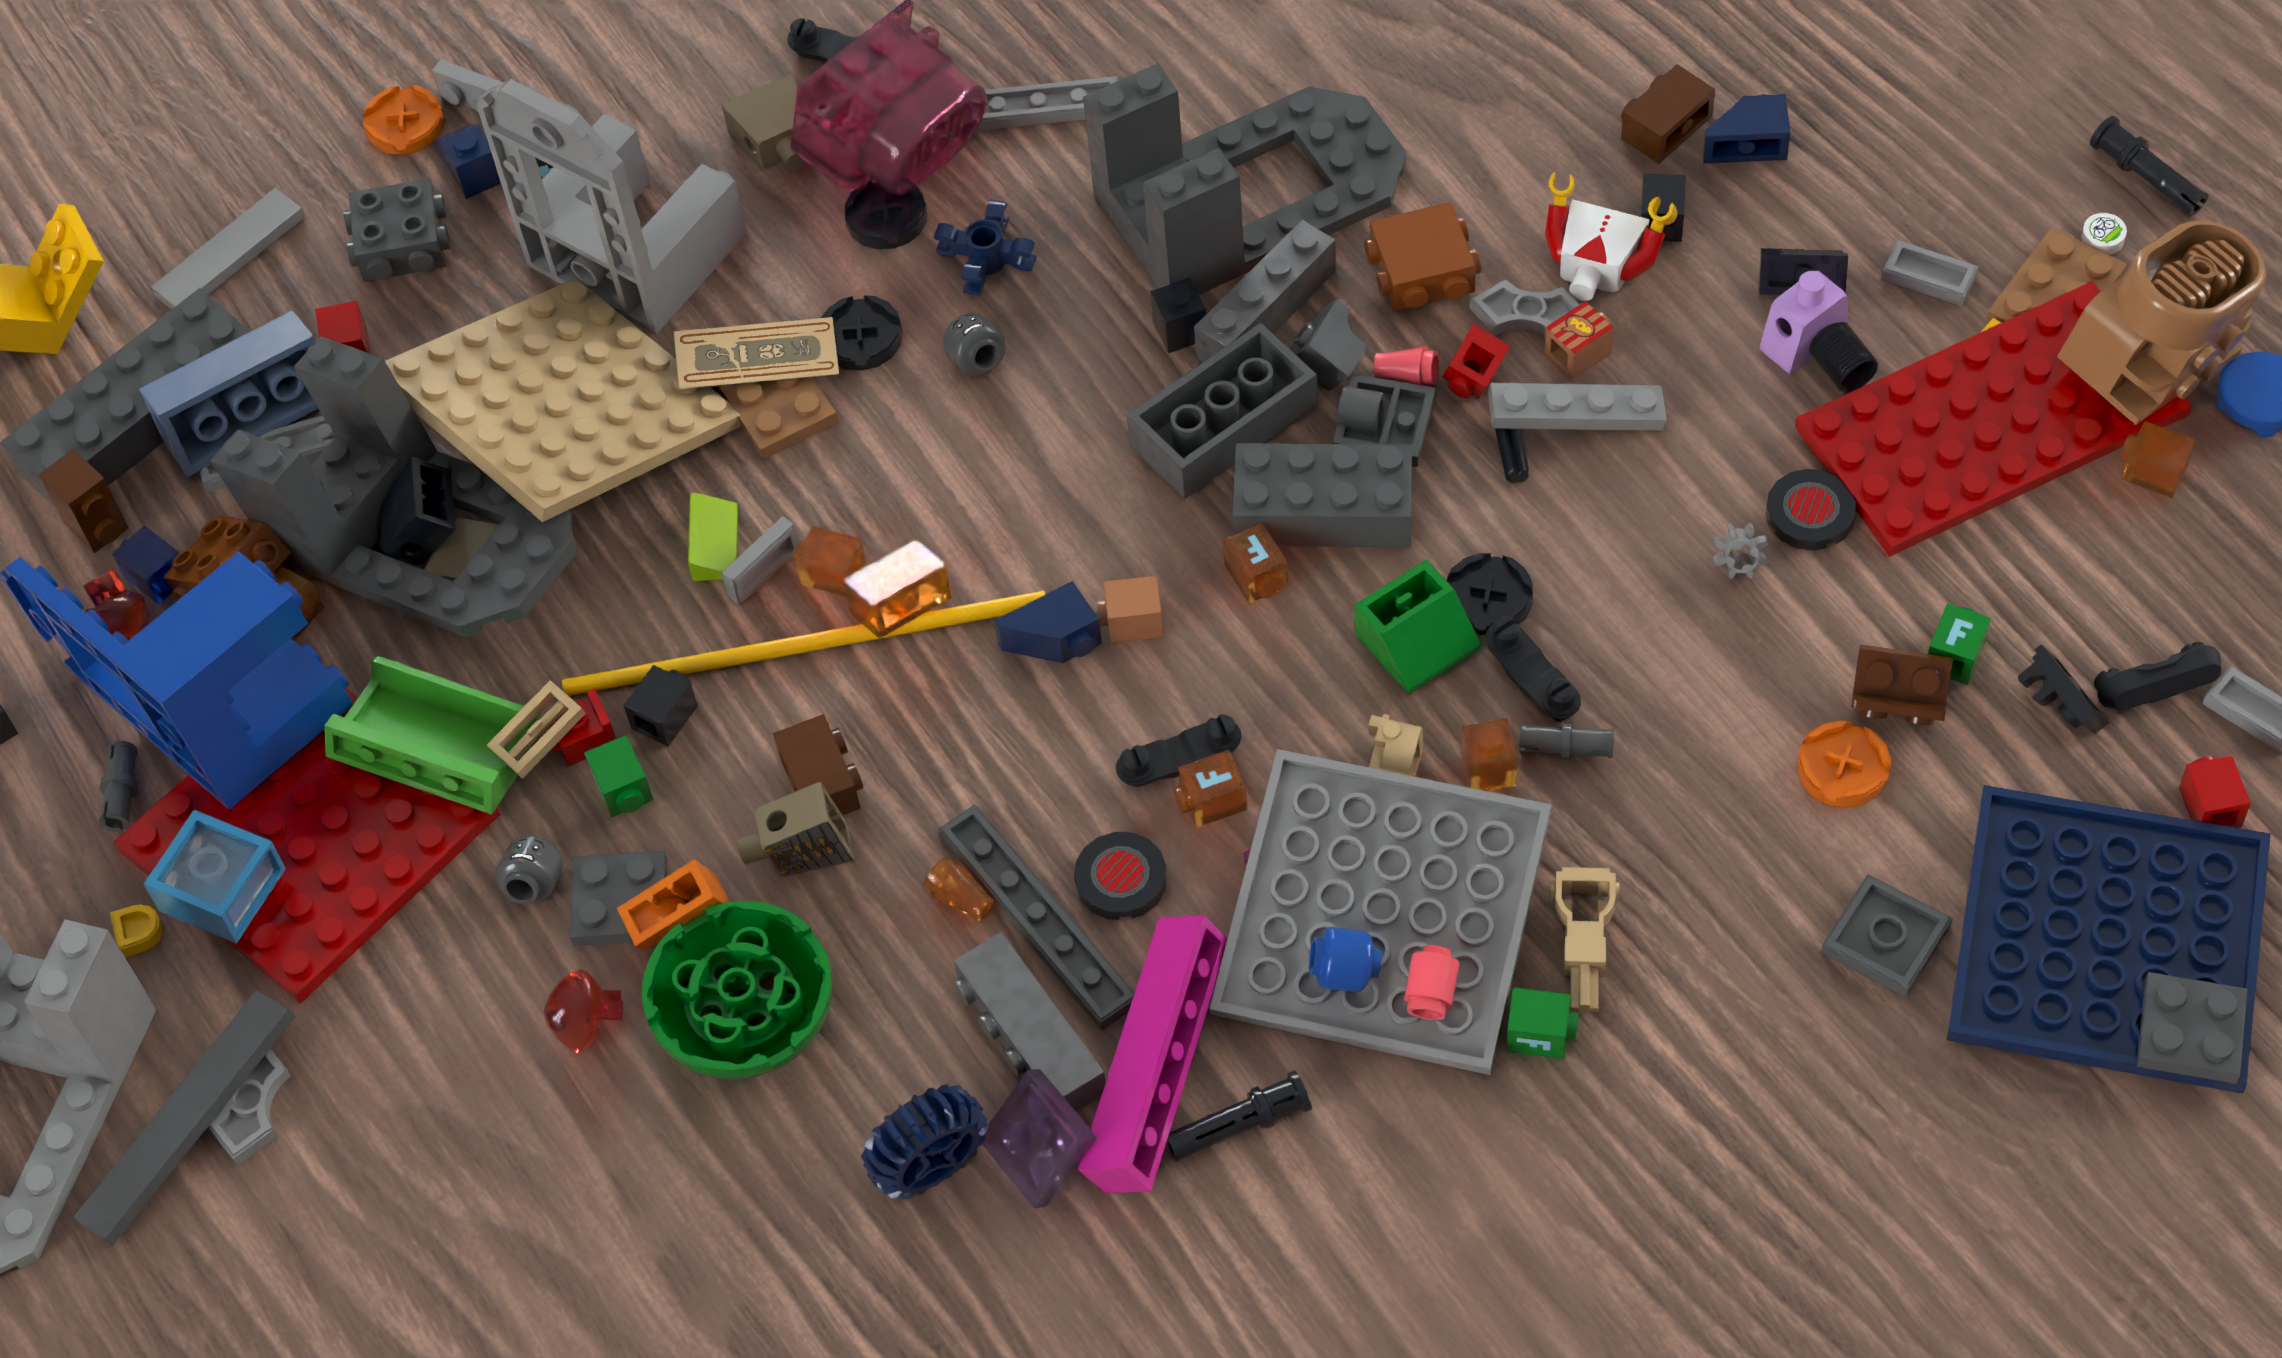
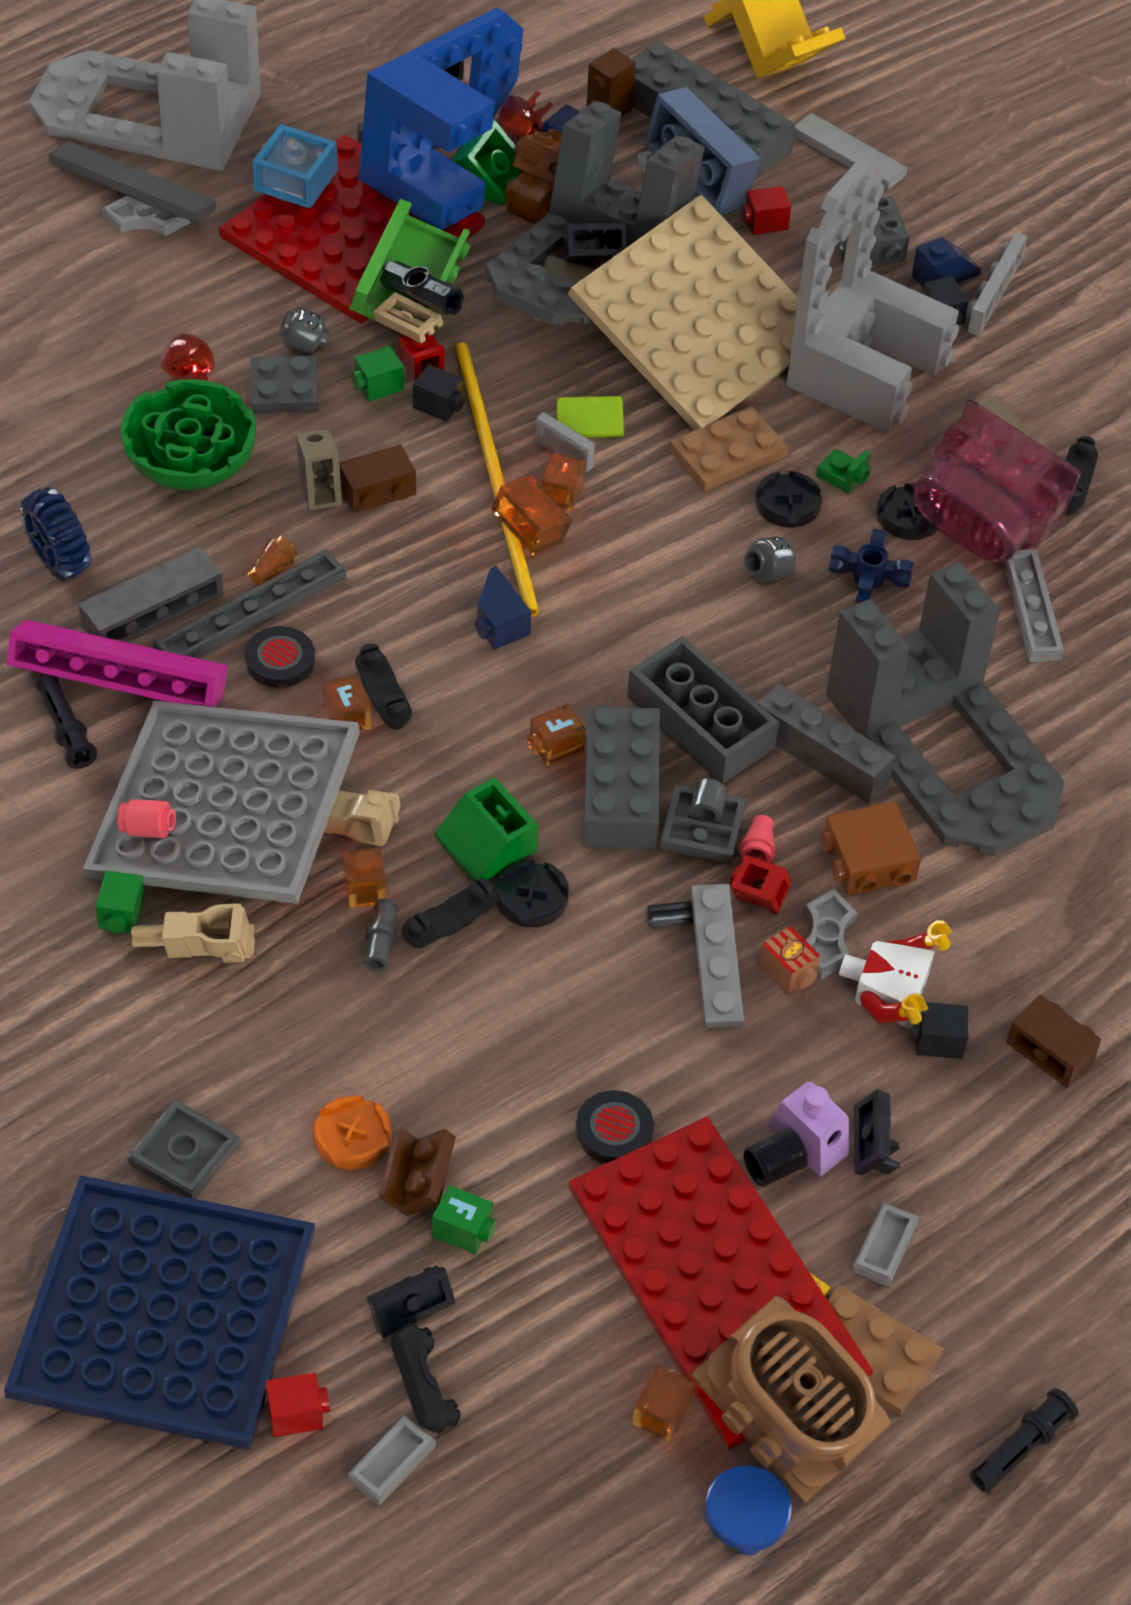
camera: 80 degrees right, 5 degrees down
(403, 120) = (982, 233): orange tile -> none
(516, 682) = (422, 287): none -> black piece
(671, 901) = (266, 402): orange arch -> none
(755, 352) = (755, 429): sticker -> none
(818, 271) = (845, 470): none -> green bracket
(1037, 1138) = (45, 603): clear purple plate -> none
(1131, 609) = (514, 658): nougat brick -> none
(1176, 312) = (806, 680): black brick -> none
(1329, 345) = (770, 778): dark grey brick -> none
(1344, 959) = (170, 763): blue head -> none
(1734, 540) = (562, 1062): light grey gear -> none
(1750, 131) = (1040, 1105): dark blue slope -> none
(2104, 232) = (940, 1395): tile -> none
(2192, 1027) = (57, 1349): dark grey plate -> none

